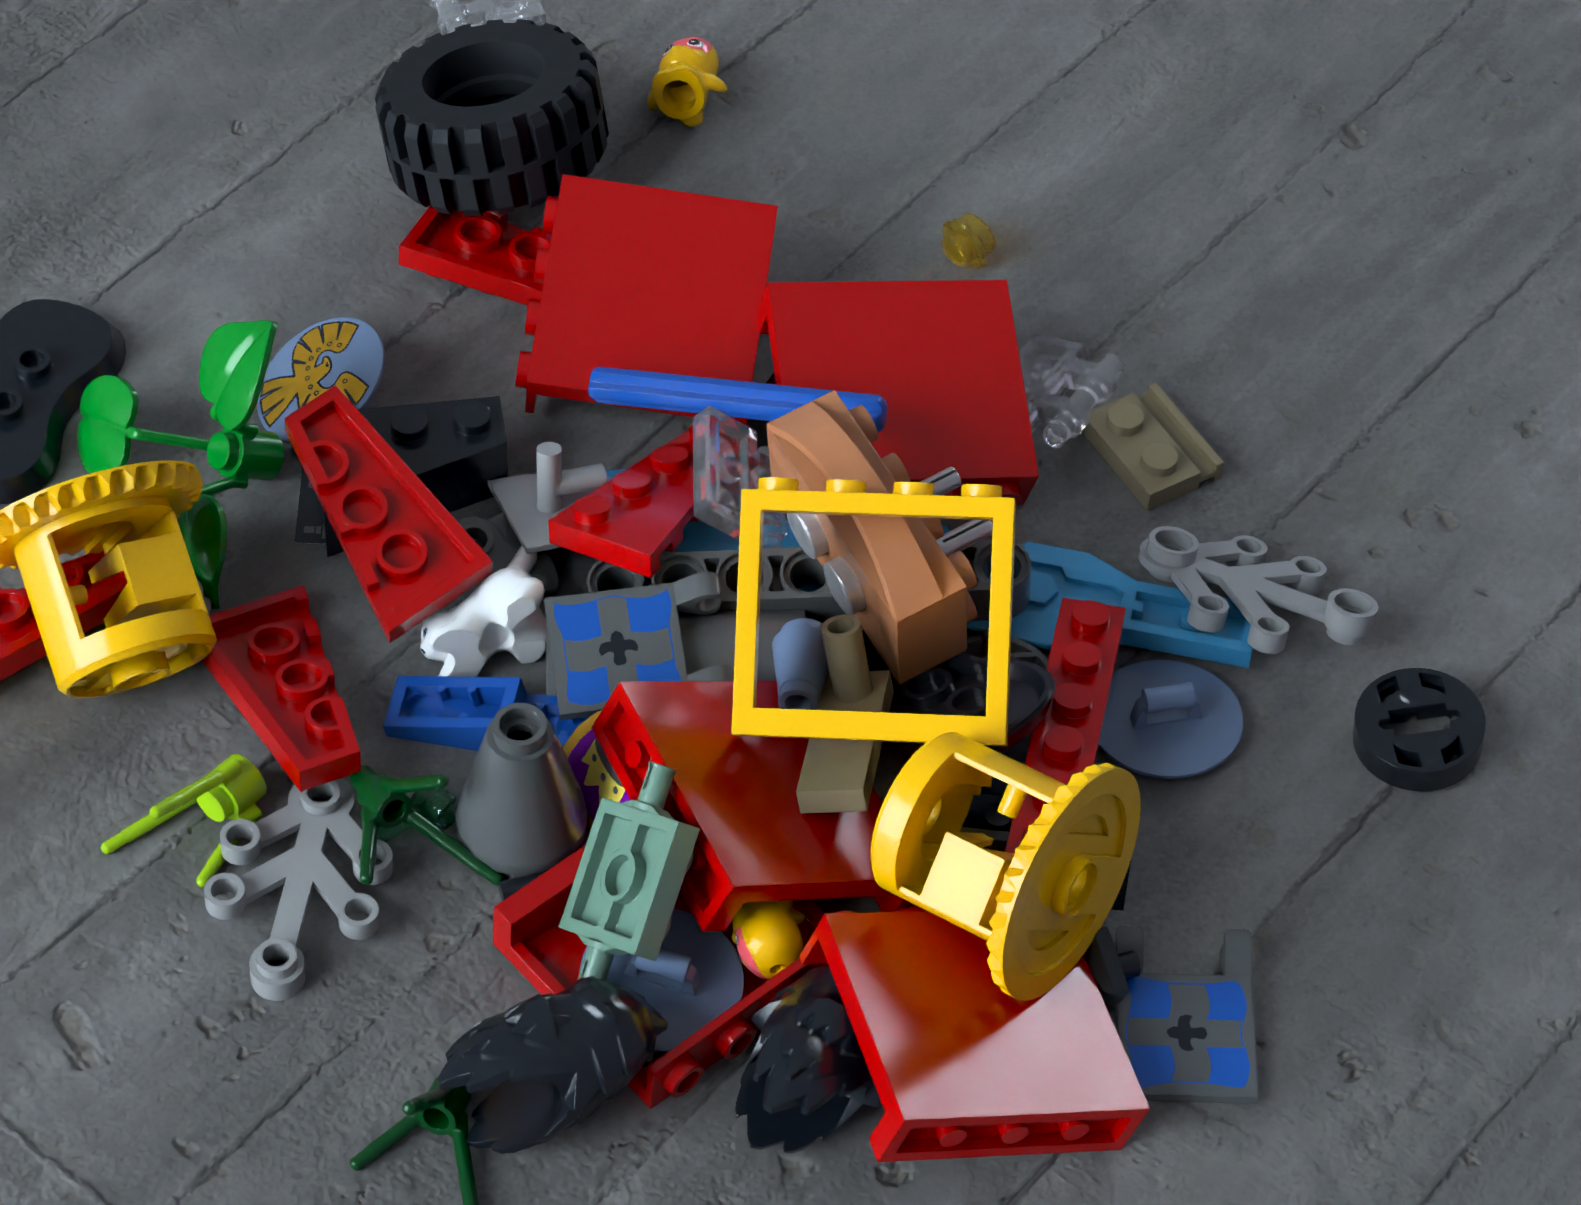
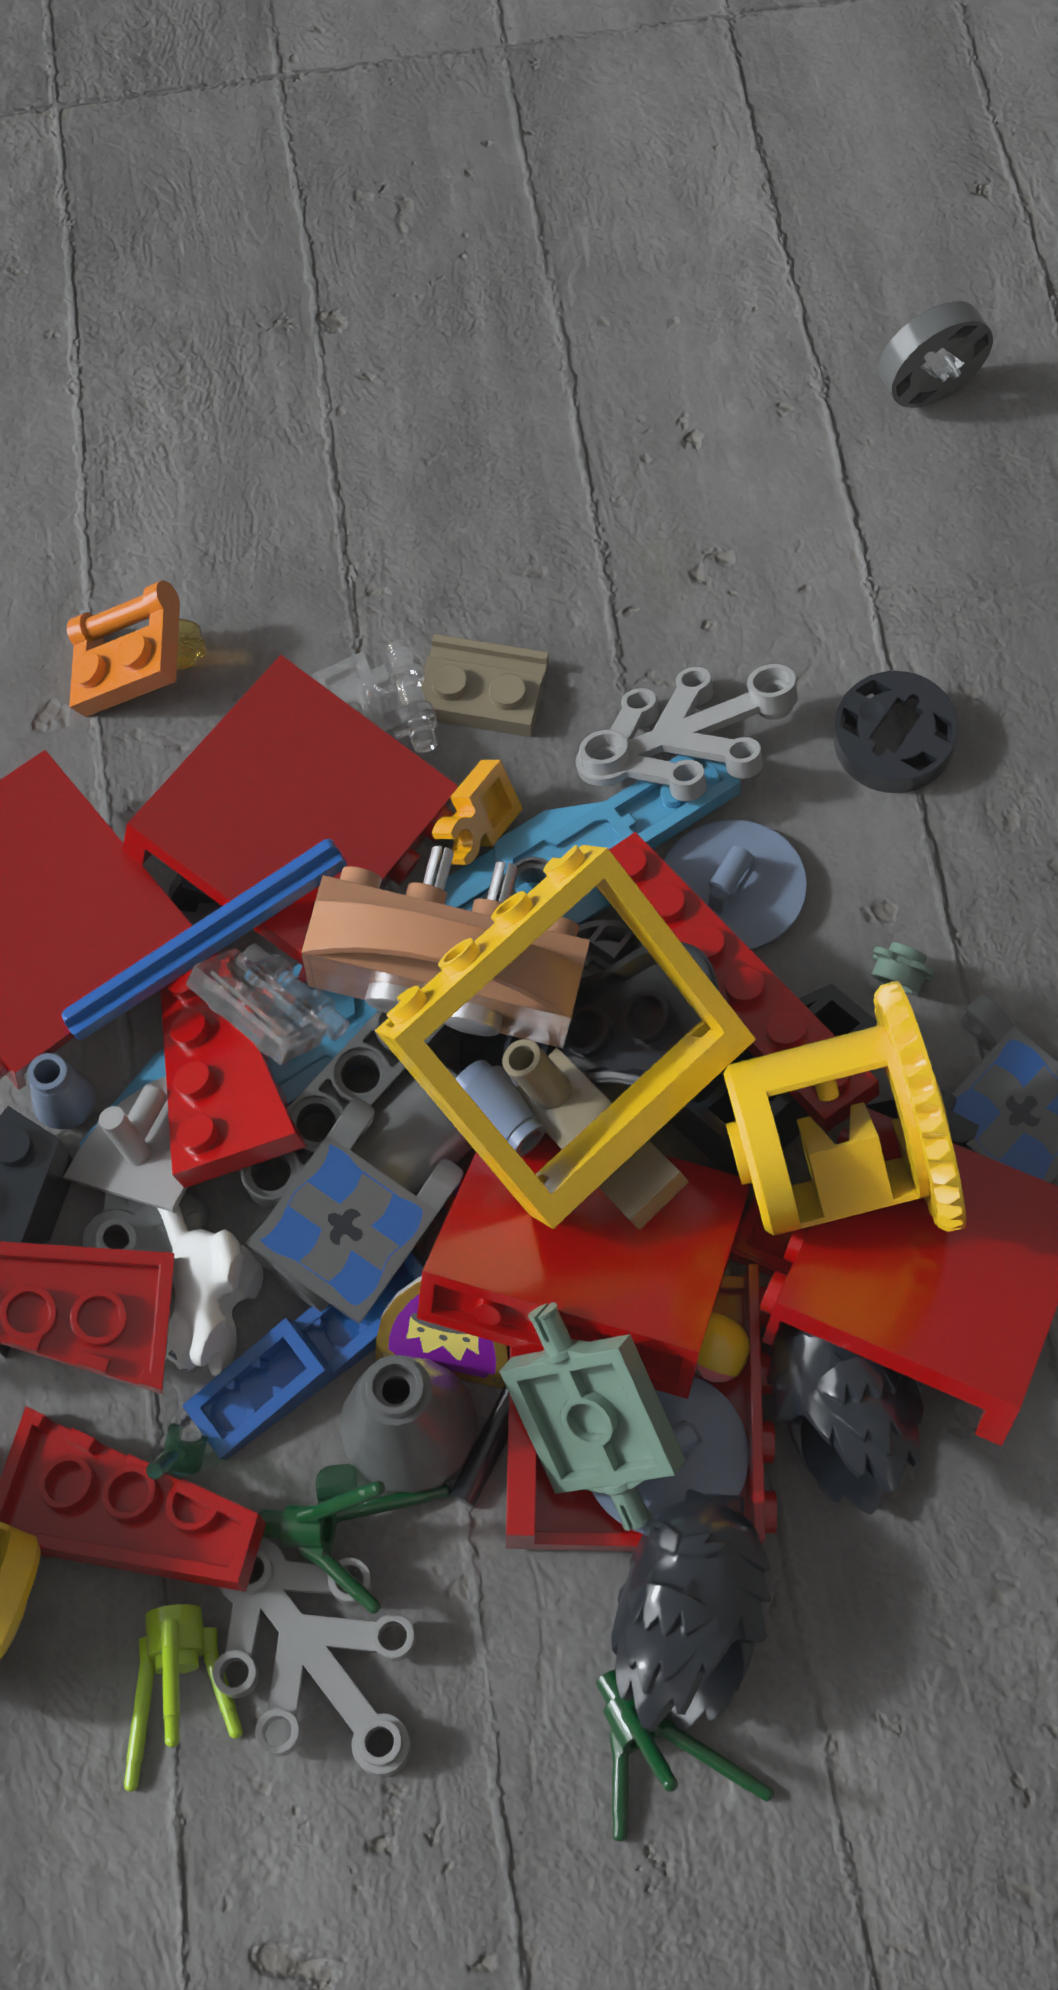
camera: 40 degrees left, 15 degrees up
(362, 698) = (178, 1455): none -> clear green hand
(545, 420) = (59, 1092): none -> sand blue cone
(914, 217) = (130, 664): none -> orange plate
(1048, 508) = (484, 810): none -> light orange plate
(1215, 867) = (902, 965): none -> sand green plate

